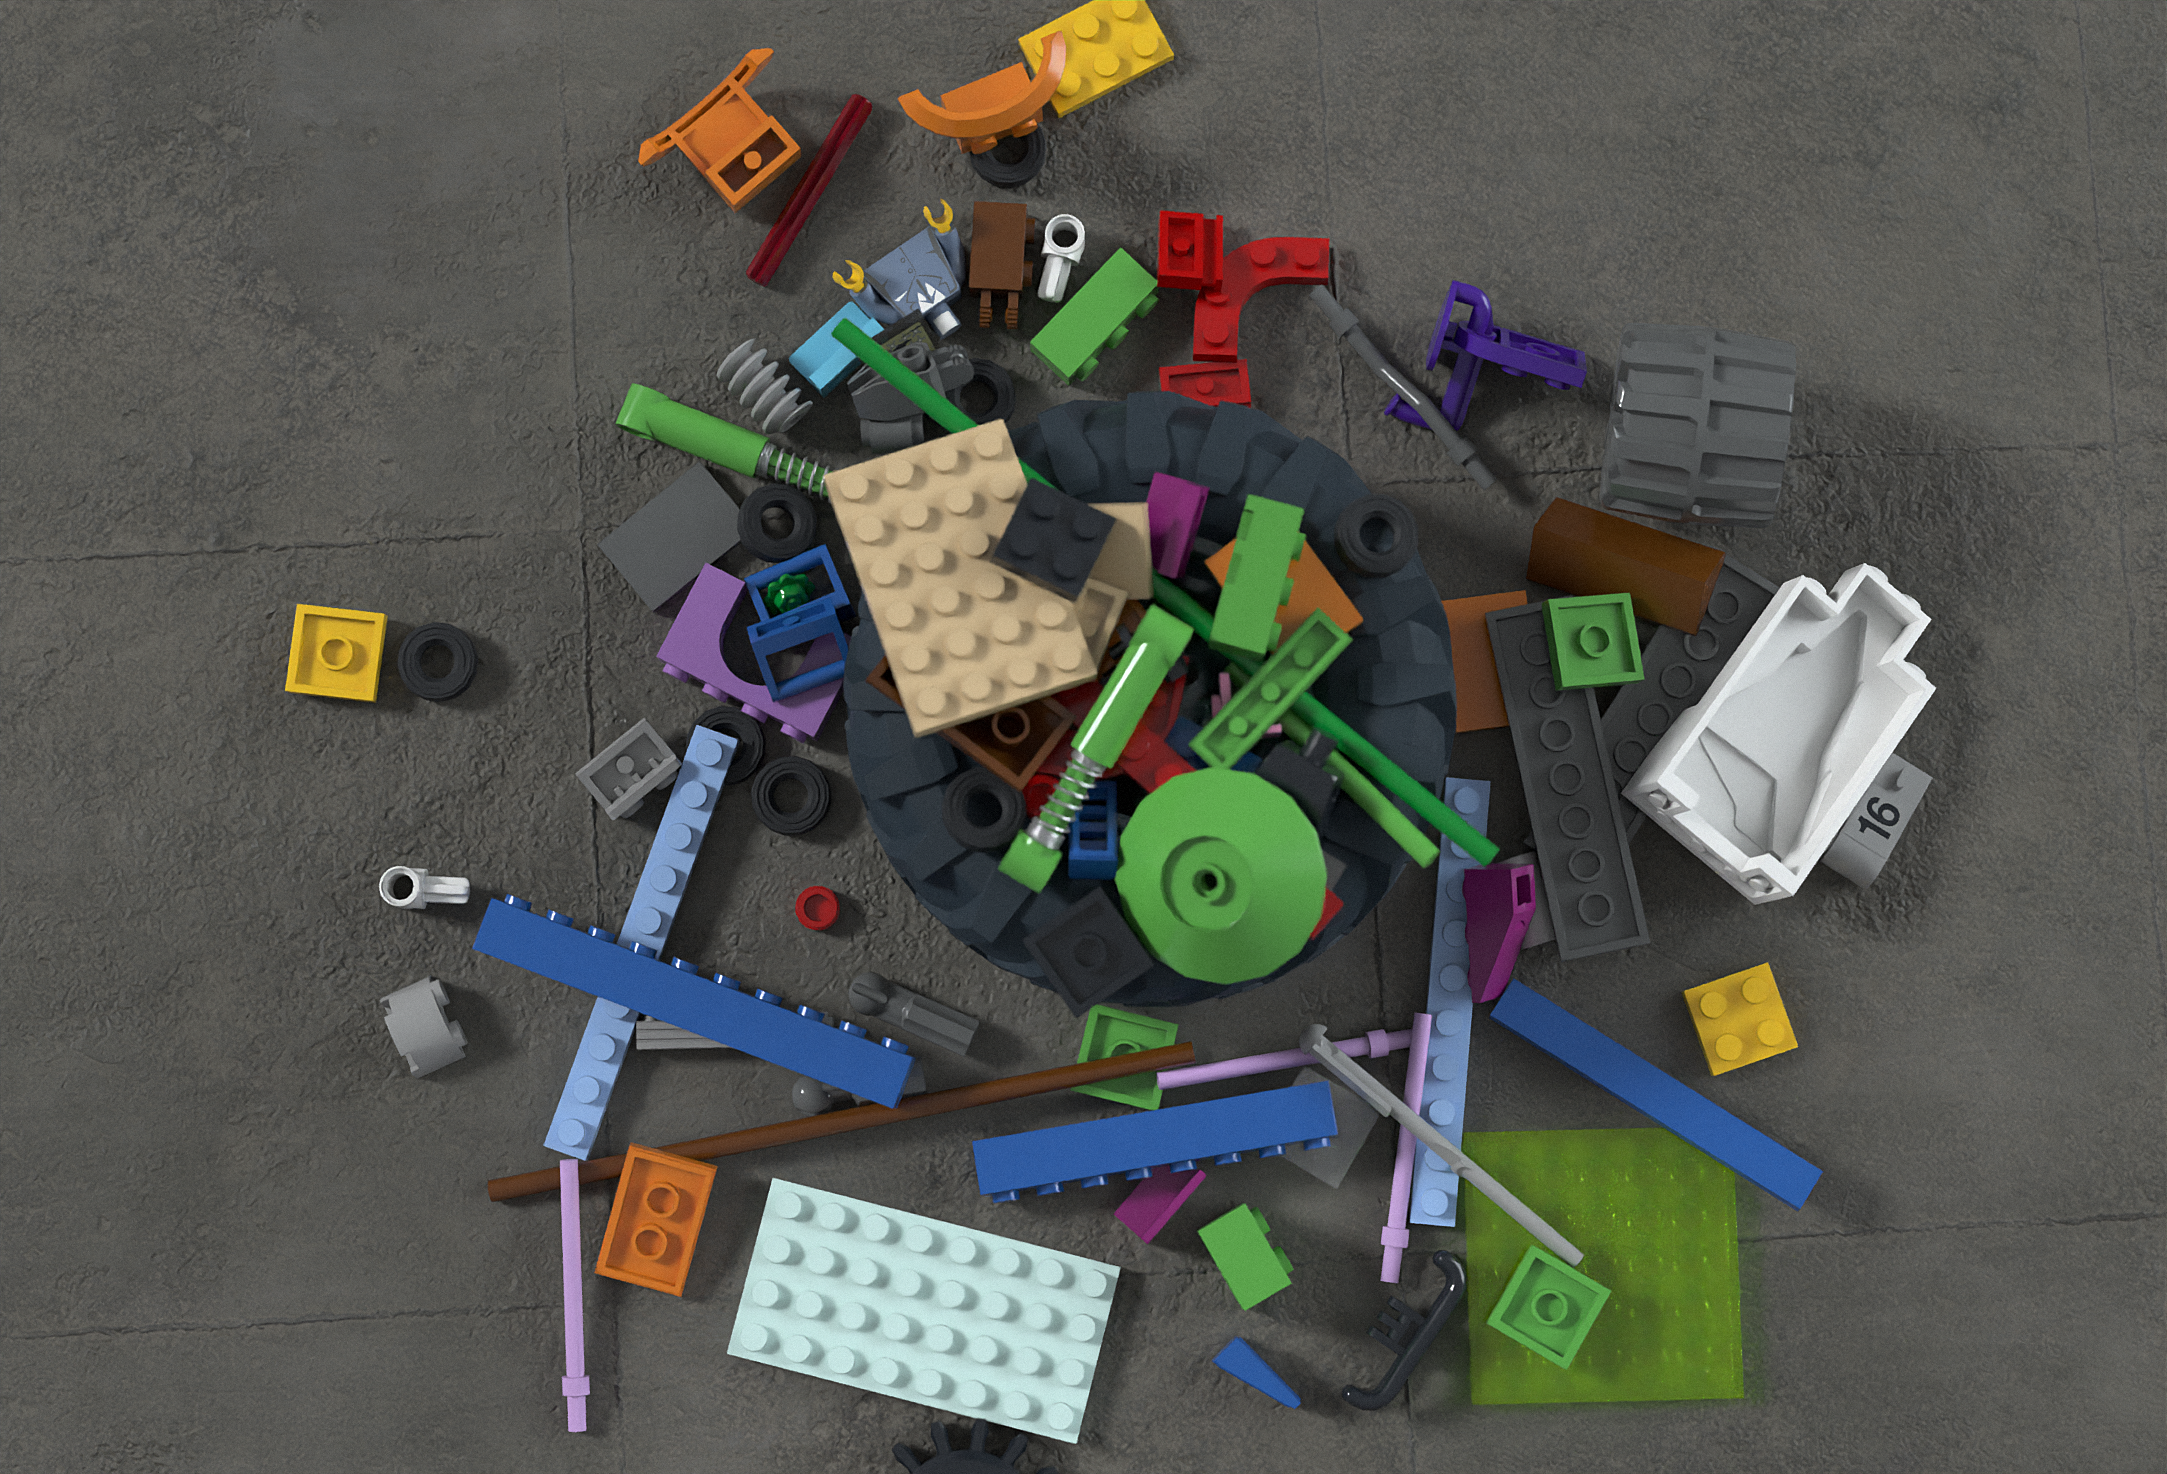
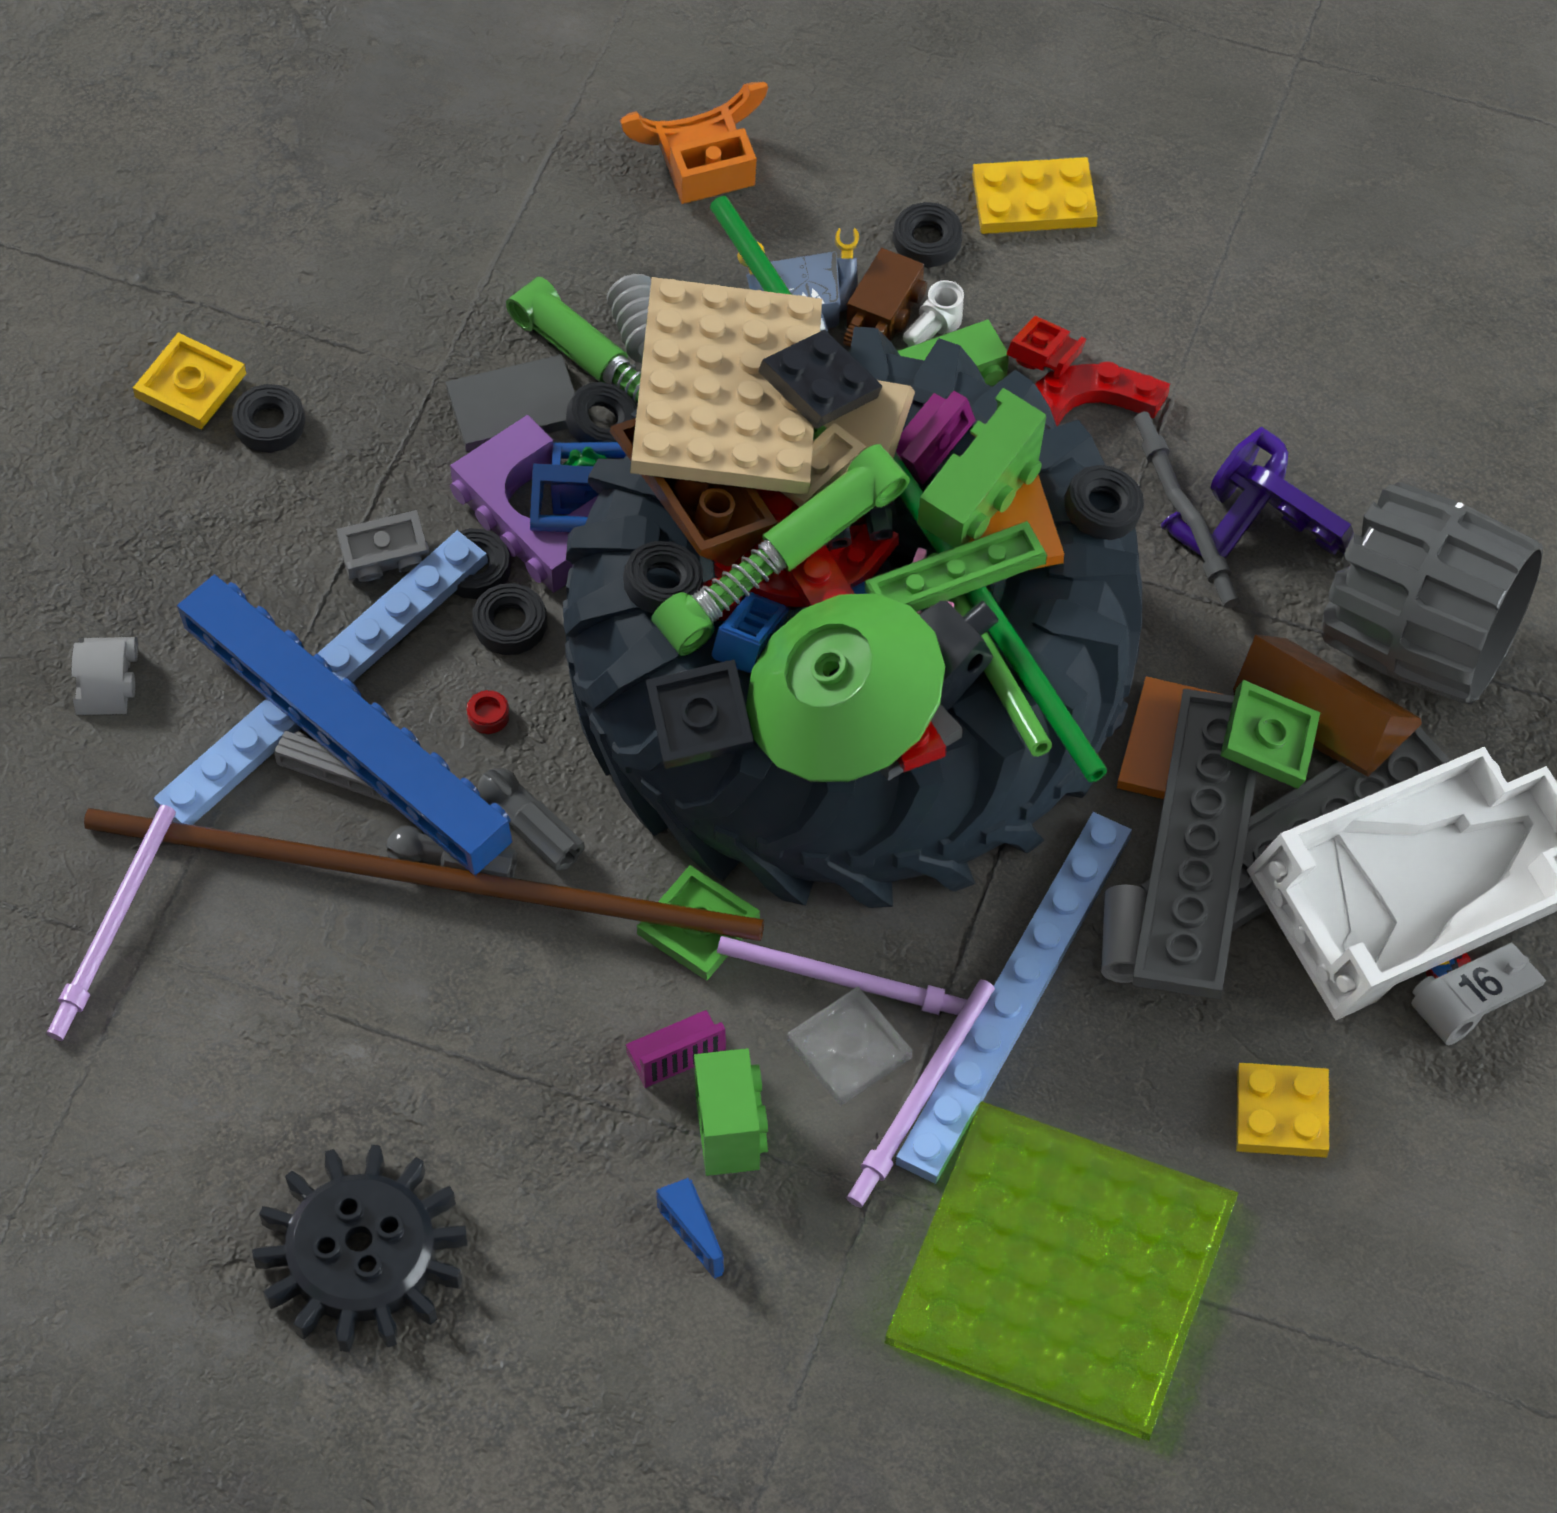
camera: 20 degrees right, 25 degrees down
(426, 888) = (160, 568): white axle -> none
(656, 1219) = (217, 889): orange tile -> none
(809, 190) = (752, 206): dark red axle -> none
(924, 1310) = (417, 1062): light aqua plate -> none
(994, 104) = (928, 184): orange piece -> none
(1156, 1140) = (694, 989): blue brick -> none
(1386, 1103) = (876, 963): light grey bar -> none
(1410, 1335) = (849, 1251): black piece -> none
(1498, 916) = (1088, 928): magenta slope -> none
(1548, 1307) = (994, 1266): bright green plate -> none
(1656, 1095) = (1178, 1135): blue tile -> none

